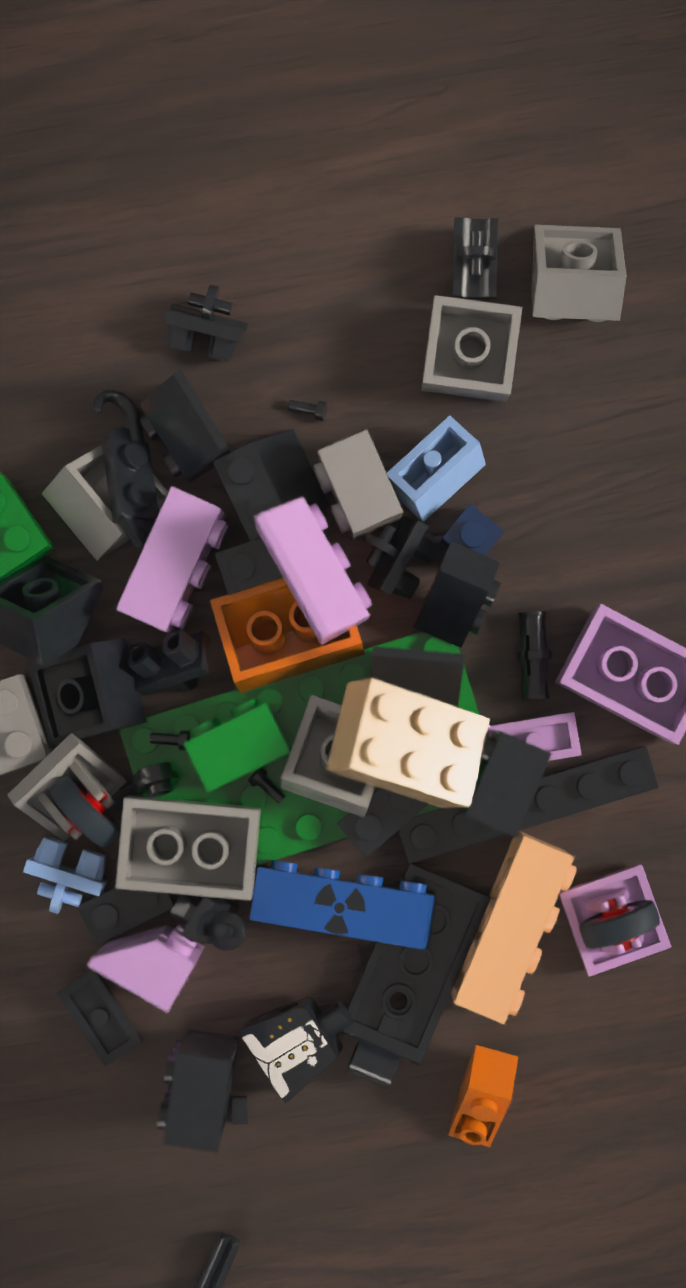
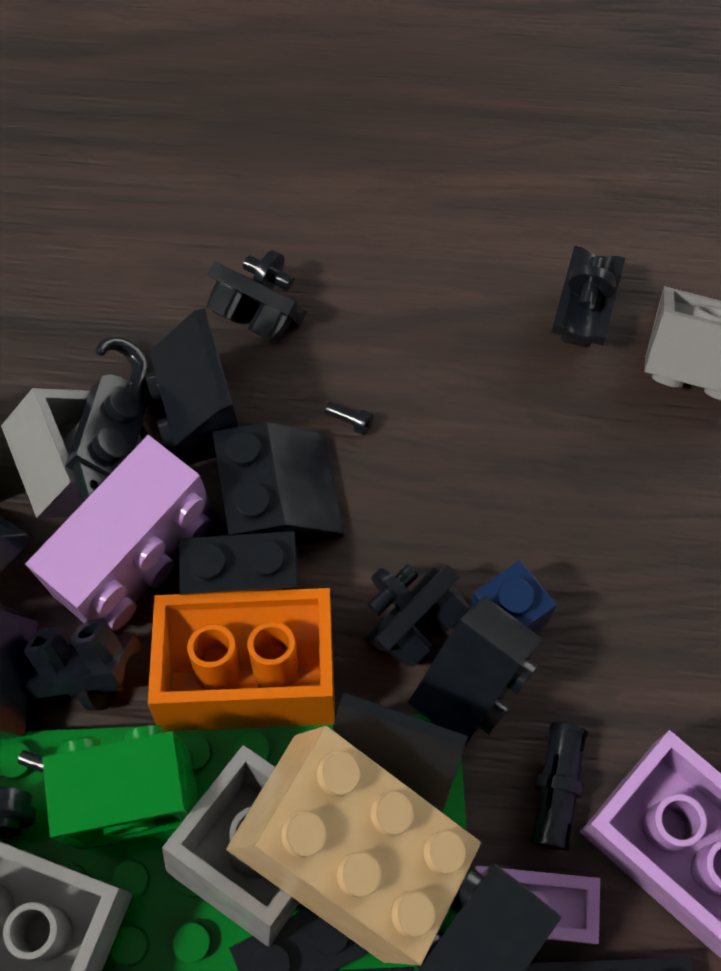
camera: 15 degrees right, 20 degrees down
(259, 778) = (149, 861): black piece -> none
(313, 568) = (293, 576): lavender slope -> none
(358, 484) = (382, 503): light grey brick -> none
(436, 468) = (486, 512): light blue brick -> none
(471, 348) = (561, 387): light grey brick -> none

